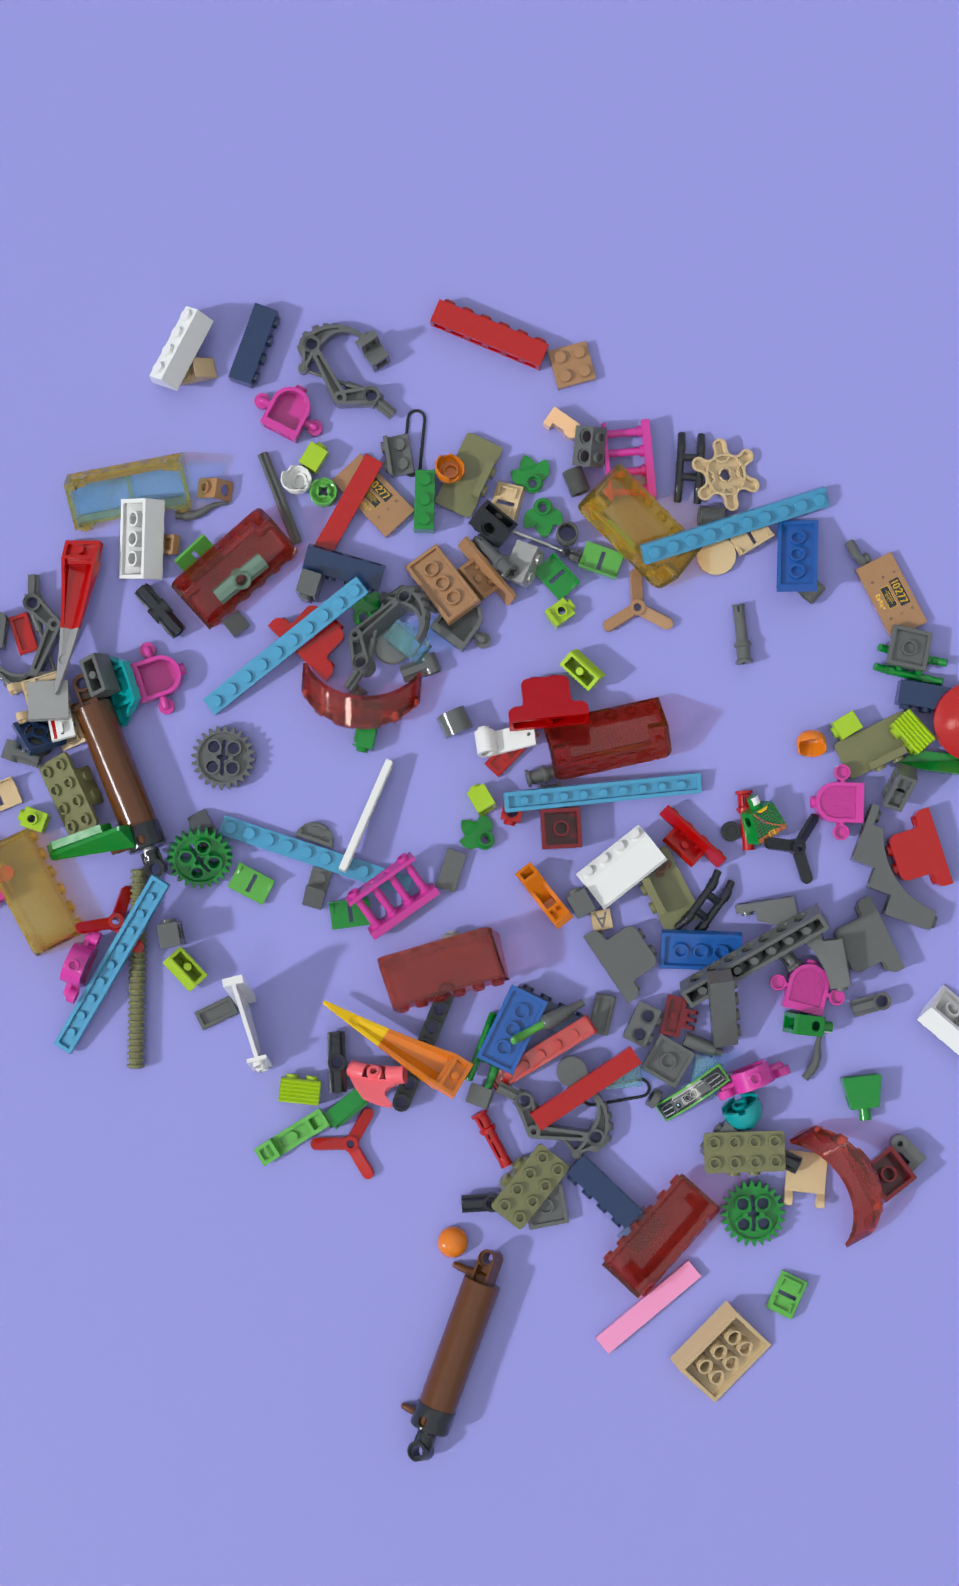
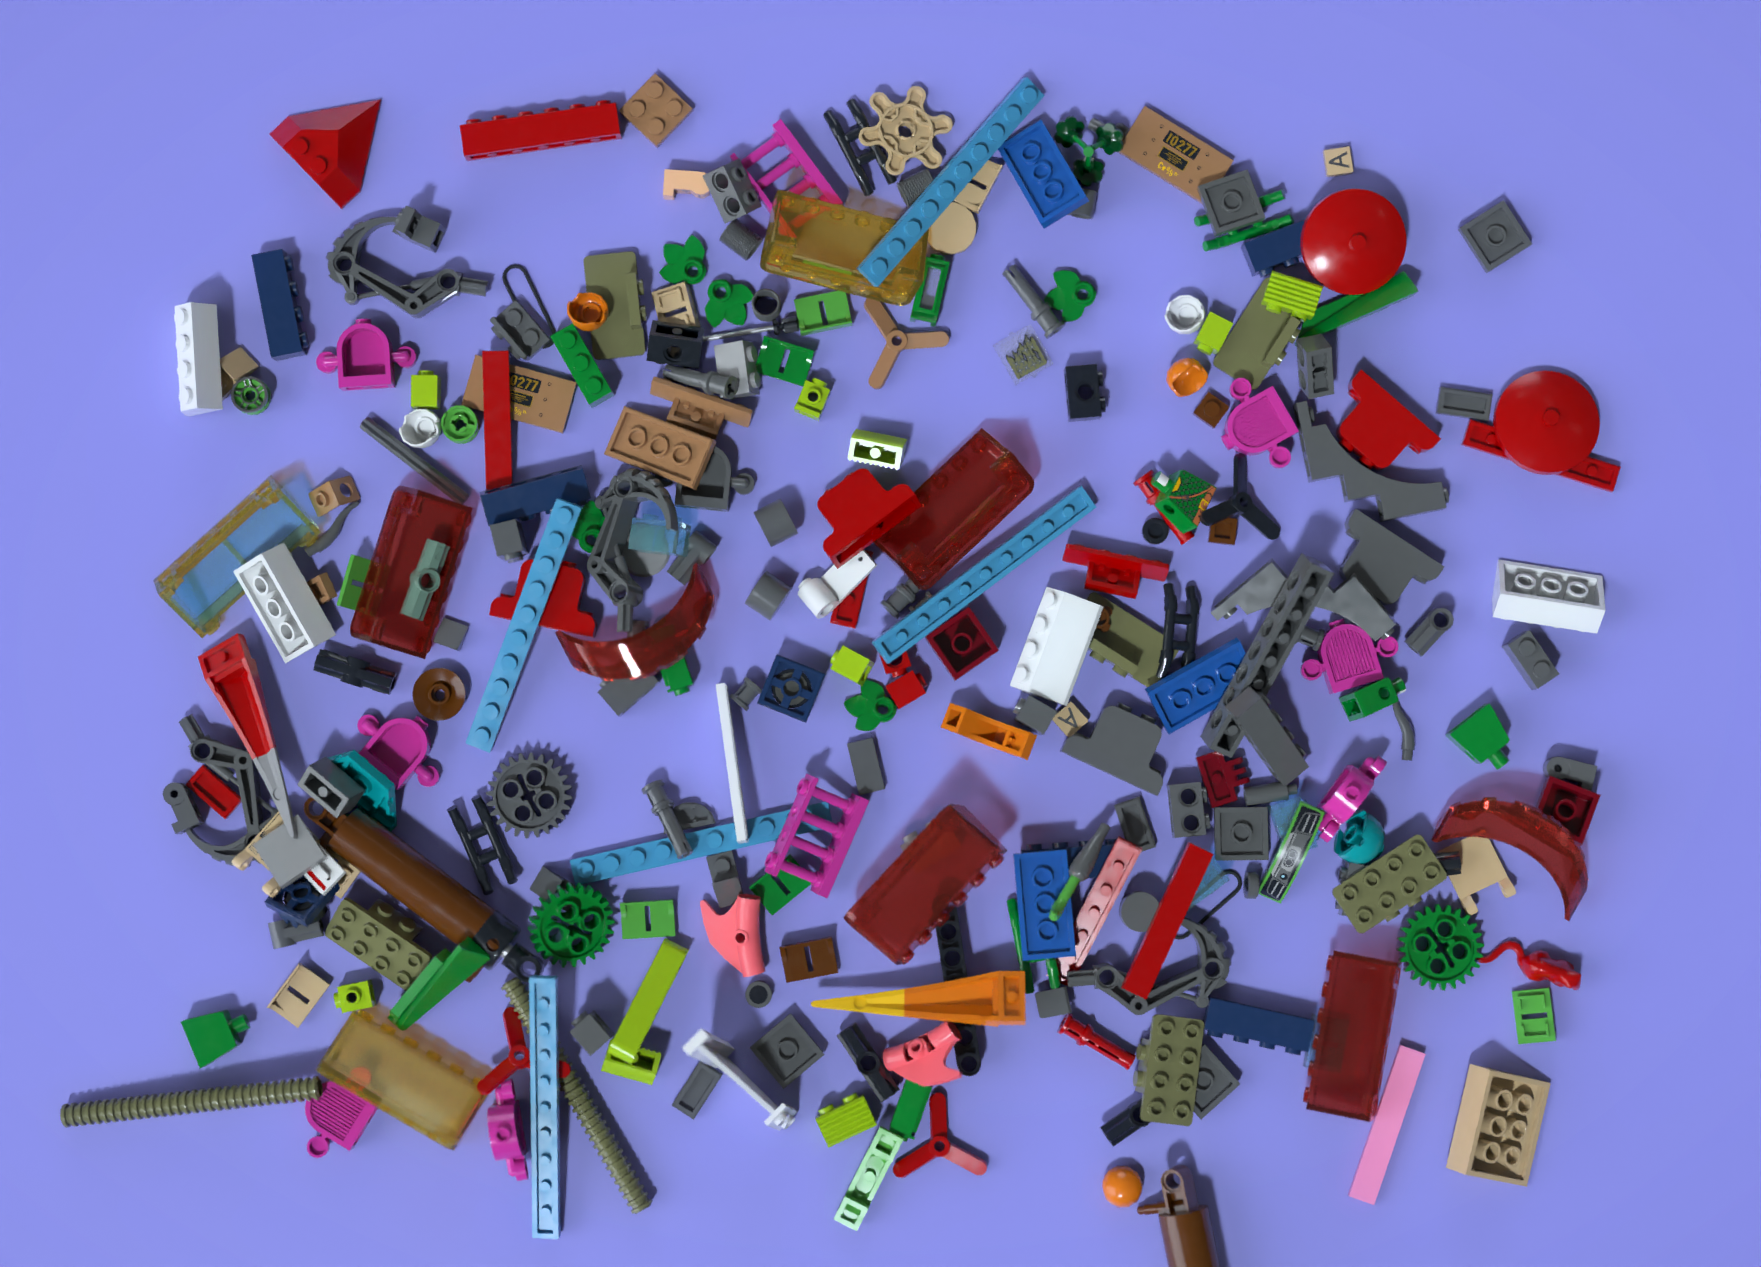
camera: 35 degrees left, 0 degrees up
(183, 780) = (467, 838): none -> black piece
(200, 384) = (246, 386): none -> bright green wheel
(203, 647) = (425, 694): none -> reddish brown dish
(219, 936) = (648, 1001): none -> lime beam
(289, 1022) = (787, 1050): none -> dark grey plate
(293, 975) = (758, 994): none -> tile
(303, 927) = (728, 931): none -> coral pin
(304, 818) = (663, 808): none -> dark grey pin
(324, 729) = (625, 693): none -> dark grey brick
(329, 969) = (795, 960): none -> reddish brown piece
(349, 264) = (331, 146): none -> red wedge
(402, 776) = (746, 693): none -> dark grey bush
(434, 791) = (791, 688): none -> dark blue piece
(488, 677) = (775, 522): none -> dark grey piece
(508, 836) = (906, 689): none -> red brick
(678, 589) = (930, 293): none -> green window
(714, 665) = (1022, 354): none -> piece
(730, 722) = (1079, 408): none -> black brick
(764, 645) = (1066, 297): none -> green plate
(774, 858) = (1223, 532): none -> reddish brown plate
(809, 1264) = (1539, 965): none -> red animal
(814, 775) = (1211, 410): none -> reddish brown plate
(828, 570) = (1109, 139): none -> dark green plant
(835, 702) = (1185, 314): none -> white hair
(924, 1062) = (1530, 660): none -> dark grey brick

